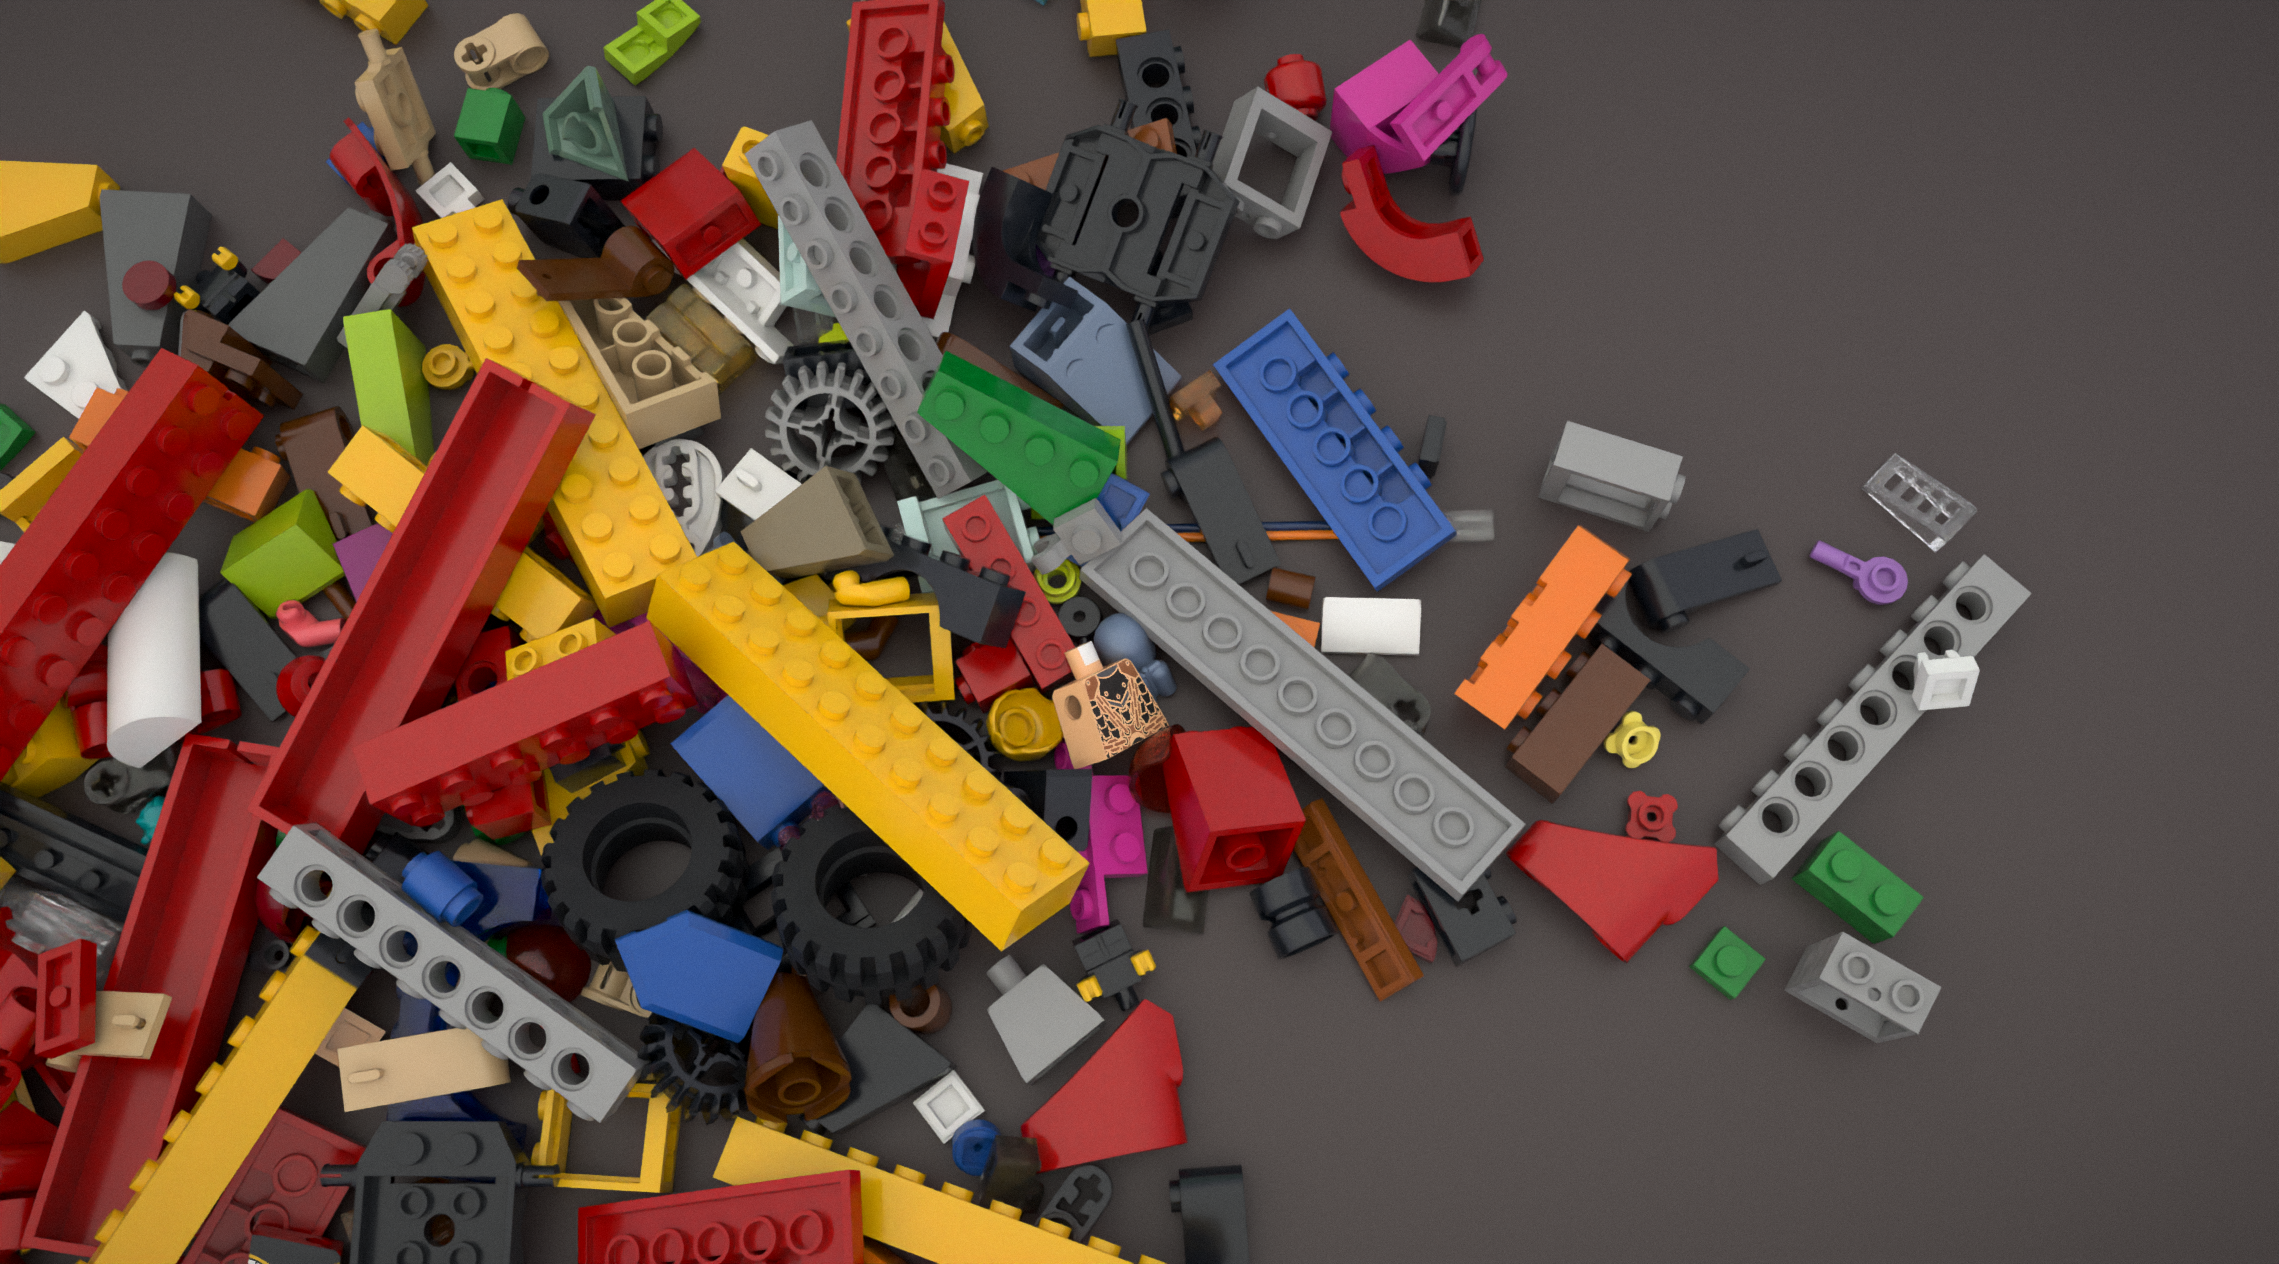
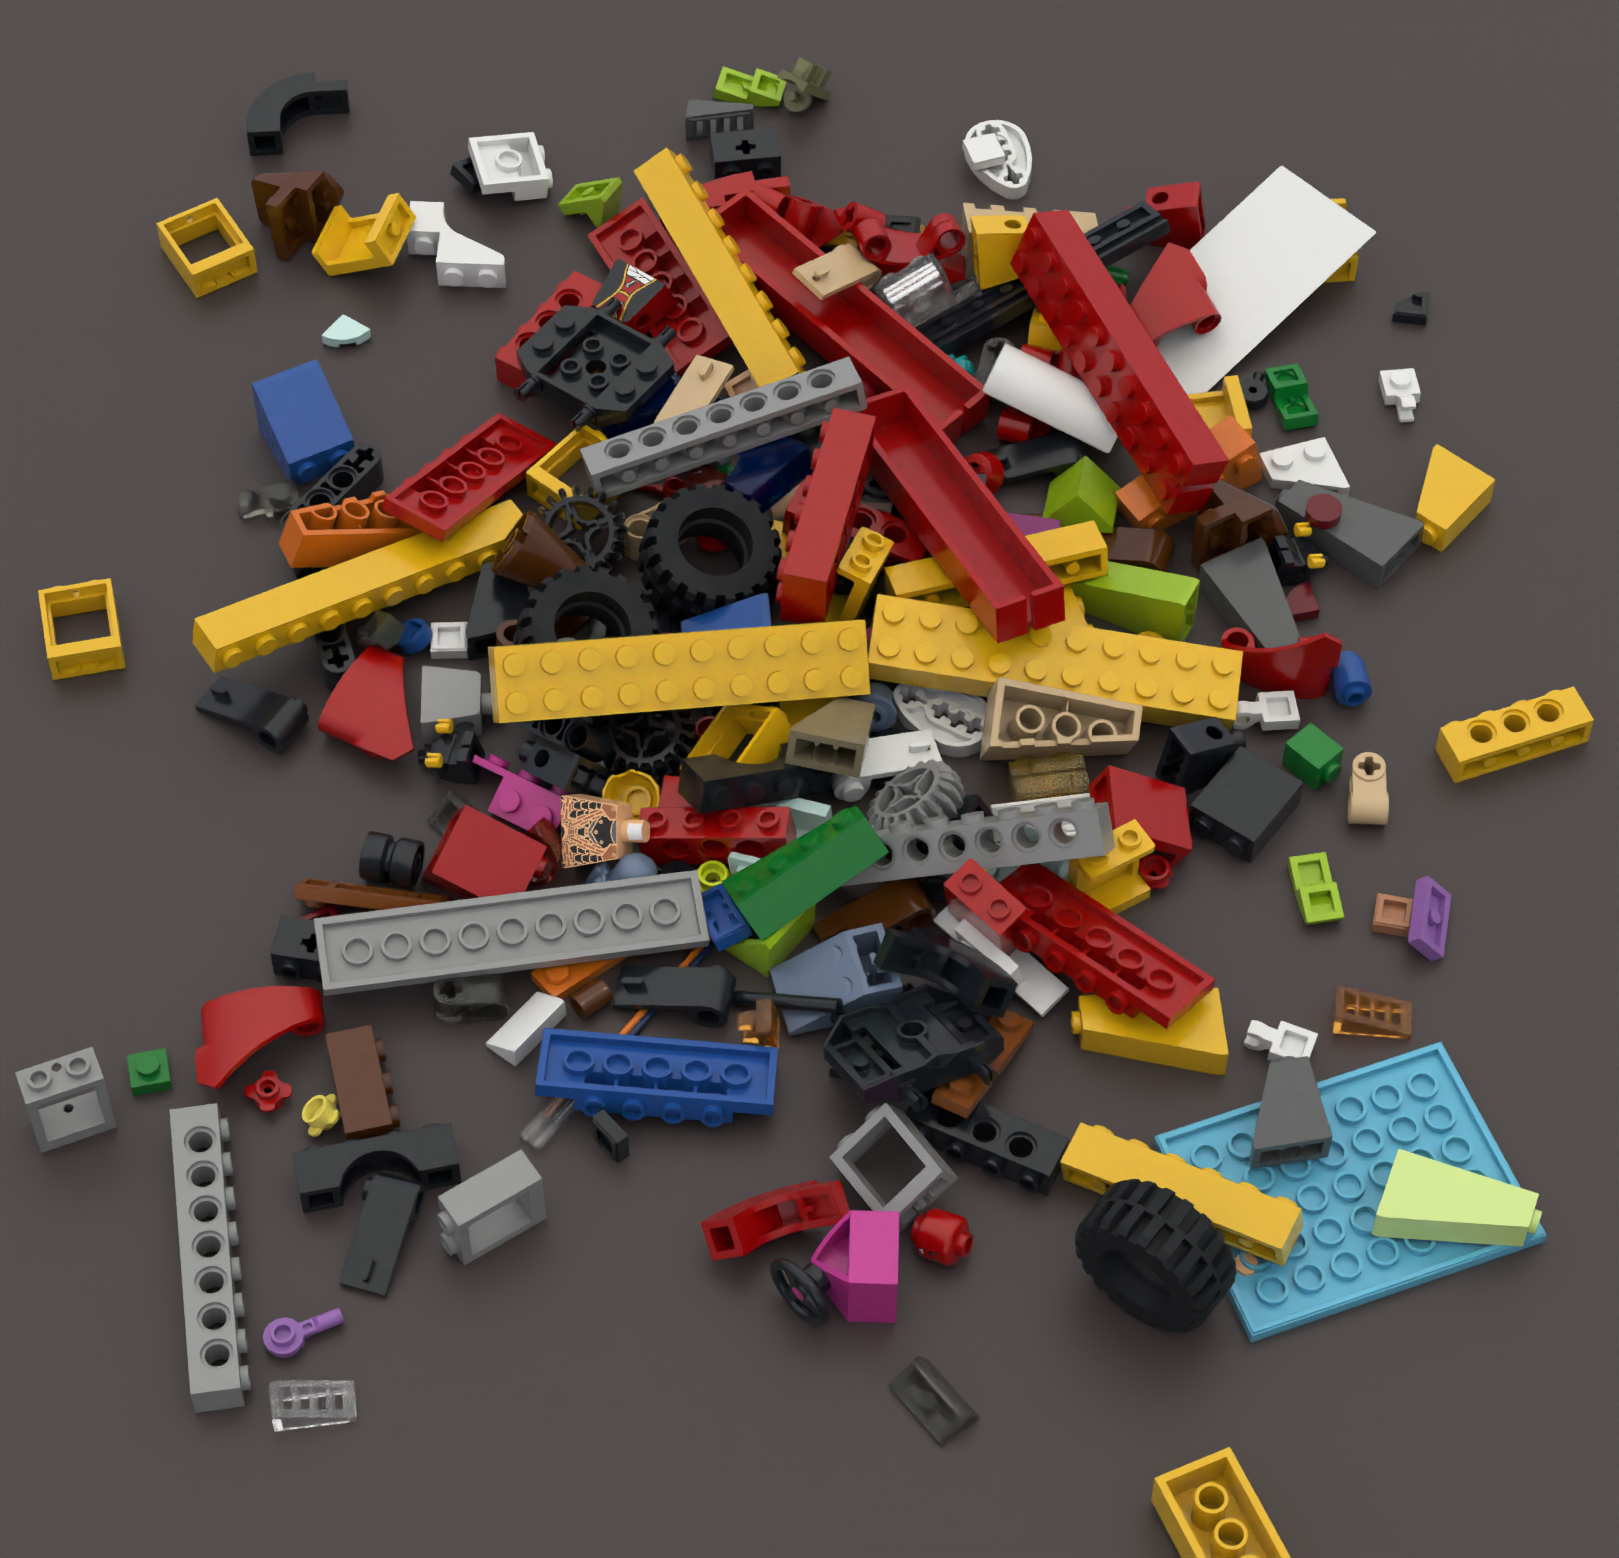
camera: 120 degrees right, 20 degrees down
(66, 998) = (862, 258): red plate -> none
(305, 628) = (1025, 494): coral arm -> none
(391, 283) = (1211, 620): light grey hinge -> none
(395, 108) = (1349, 693): tan plate -> none
(441, 888) = (774, 441): blue brick -> none
(585, 125) = (1248, 792): sand green slope -> none
(627, 269) = (1125, 723): reddish brown door -> none
(700, 972) = (619, 530): blue tile -> none
(873, 593) = (771, 739): yellow arm -> none
(1079, 533) = (715, 877): light grey plate -> none
(1449, 98) = (829, 1273): dark pink plate -> none
(1544, 627) = (426, 1081): orange wedge -> none
(1857, 888) = (121, 1161): green brick -> none
(1944, 681) = (190, 1272): white tile -> none

